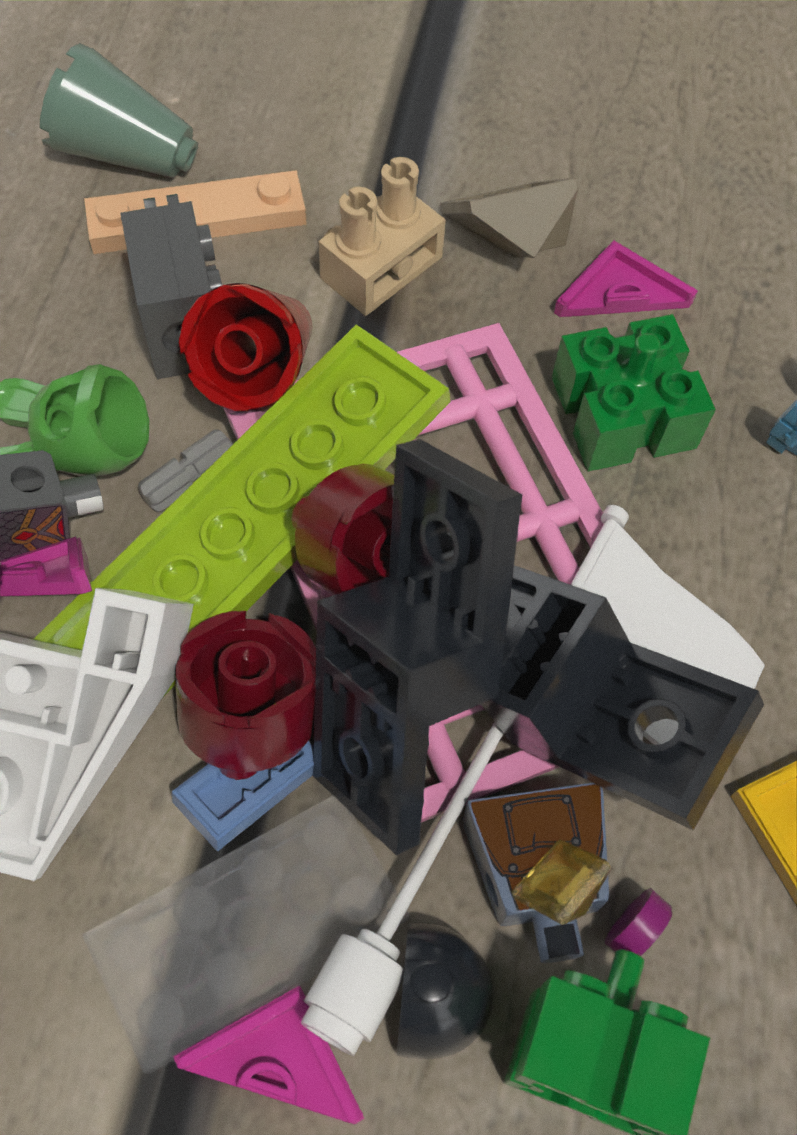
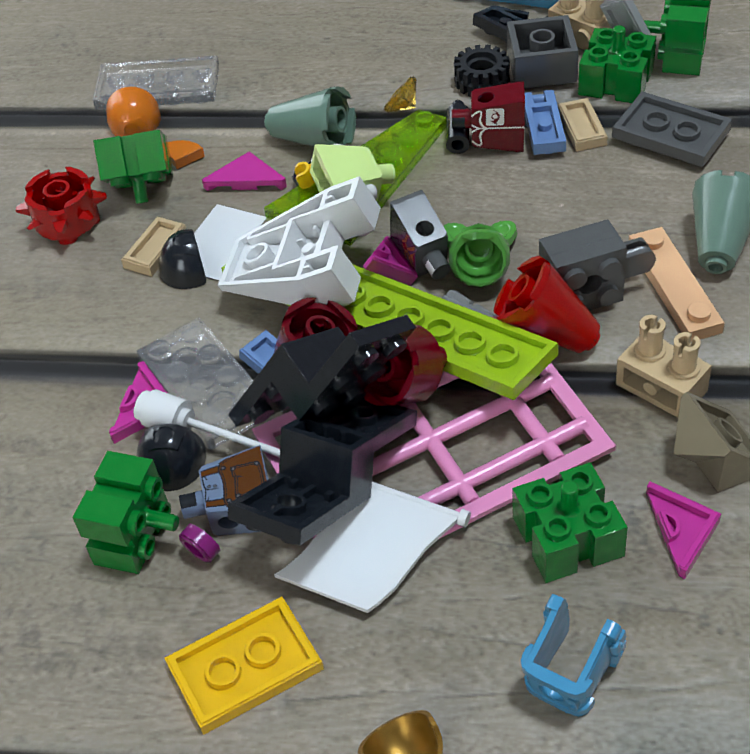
camera: 95 degrees right, 15 degrees down
(563, 882) = (207, 481): clear yellow slope -> none

